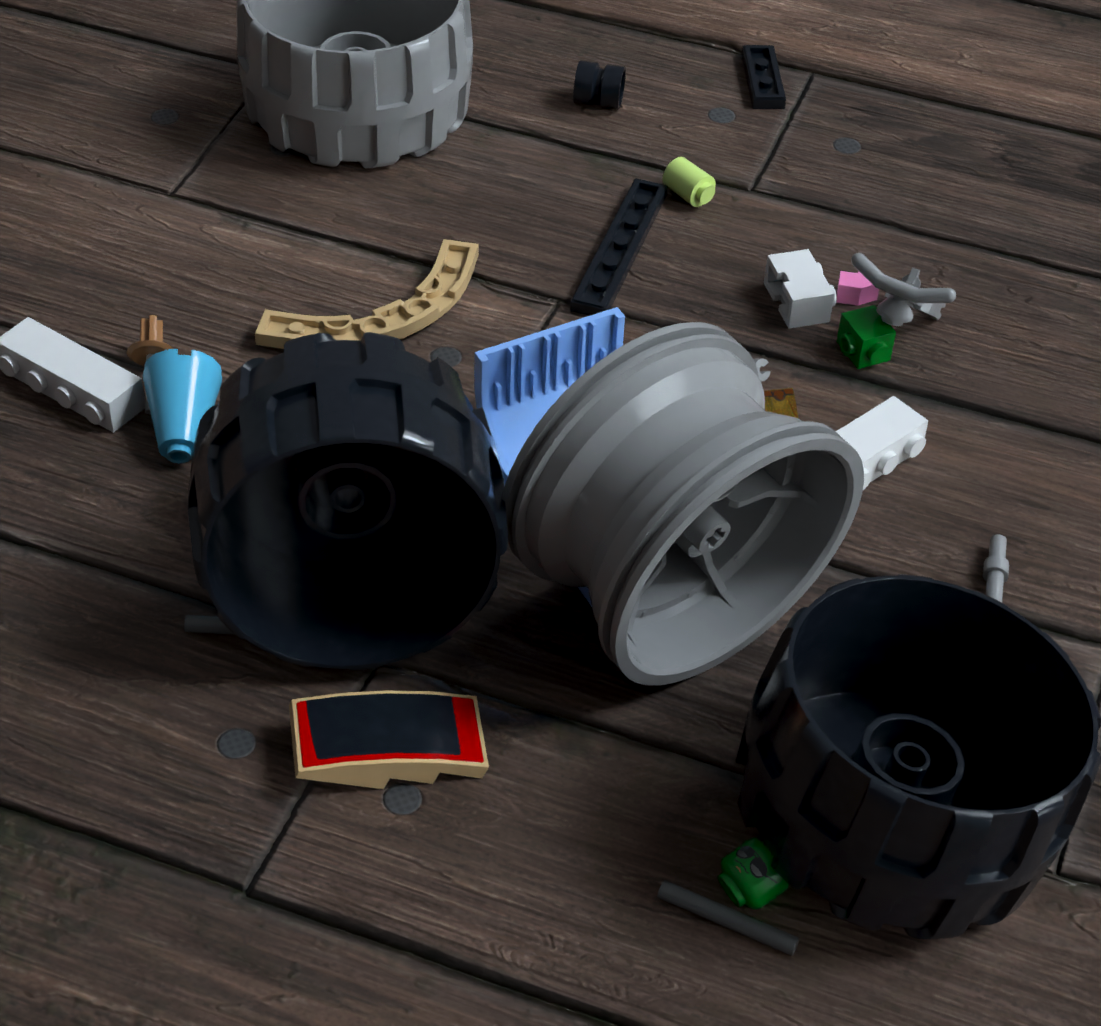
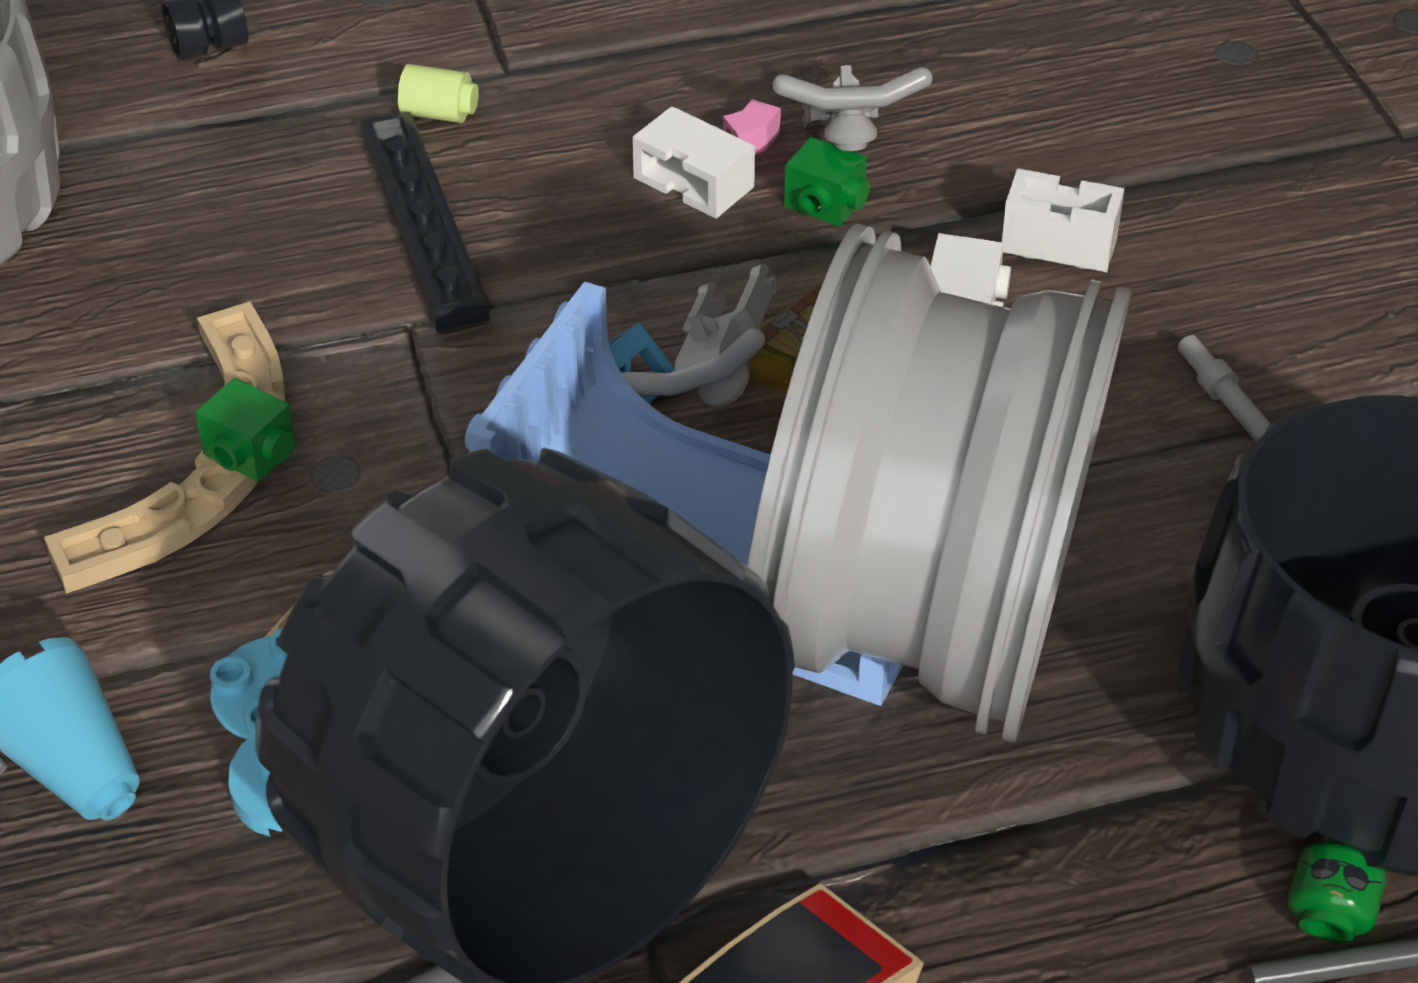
camera: 35 degrees left, 0 degrees up
(402, 305) = (246, 429): none -> green brick
(983, 429) = (1062, 221): none -> white brick

